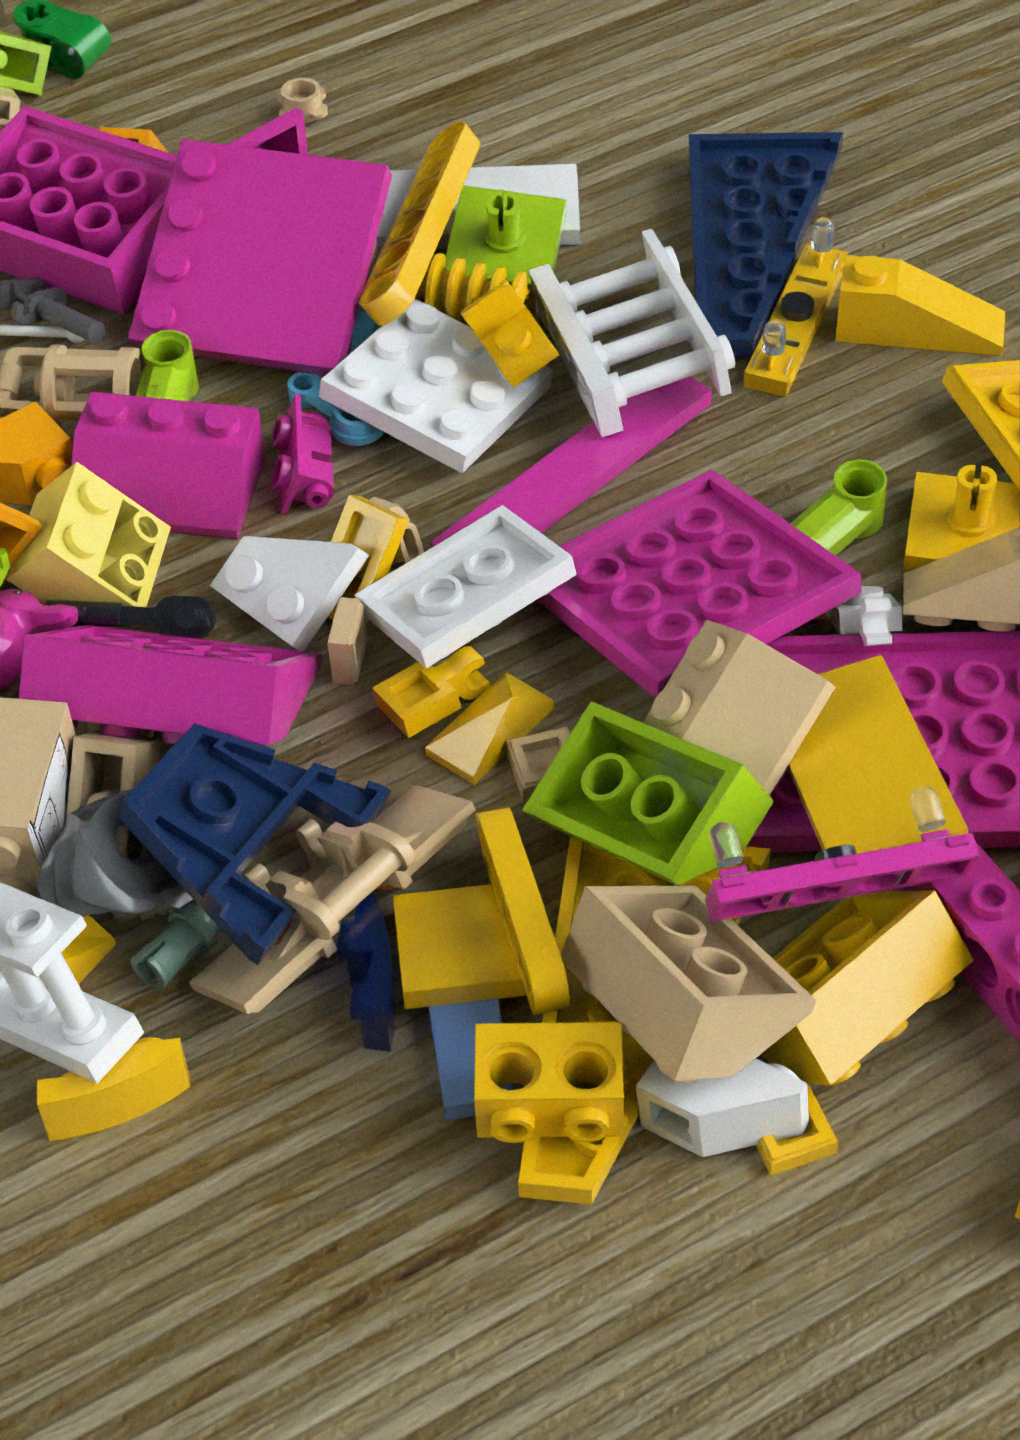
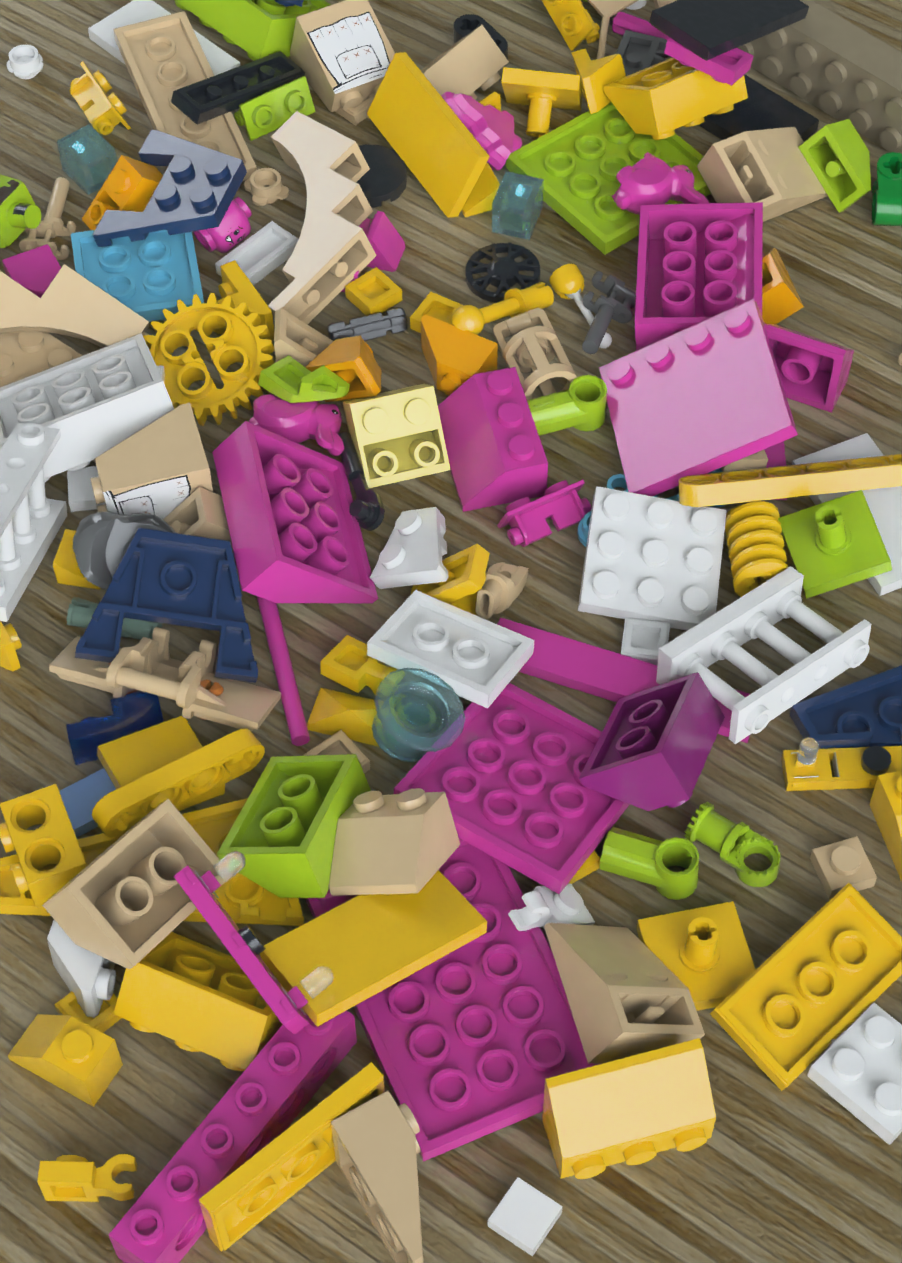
camera: 65 degrees right, 5 degrees up
(347, 641) = (380, 603): tan tile -> none
(402, 778) = (284, 672): none -> dark pink bar
(509, 333) = (707, 576): yellow slope -> none
(532, 435) = (644, 638): none -> white tile
(554, 643) = (416, 714): none -> clear light blue piece
(705, 446) = (655, 744): none -> magenta slope
(842, 444) = (734, 844): none -> lime connector
(859, 1163) = (69, 1055): none -> yellow slope
(908, 381) = (843, 864): none -> tan plate

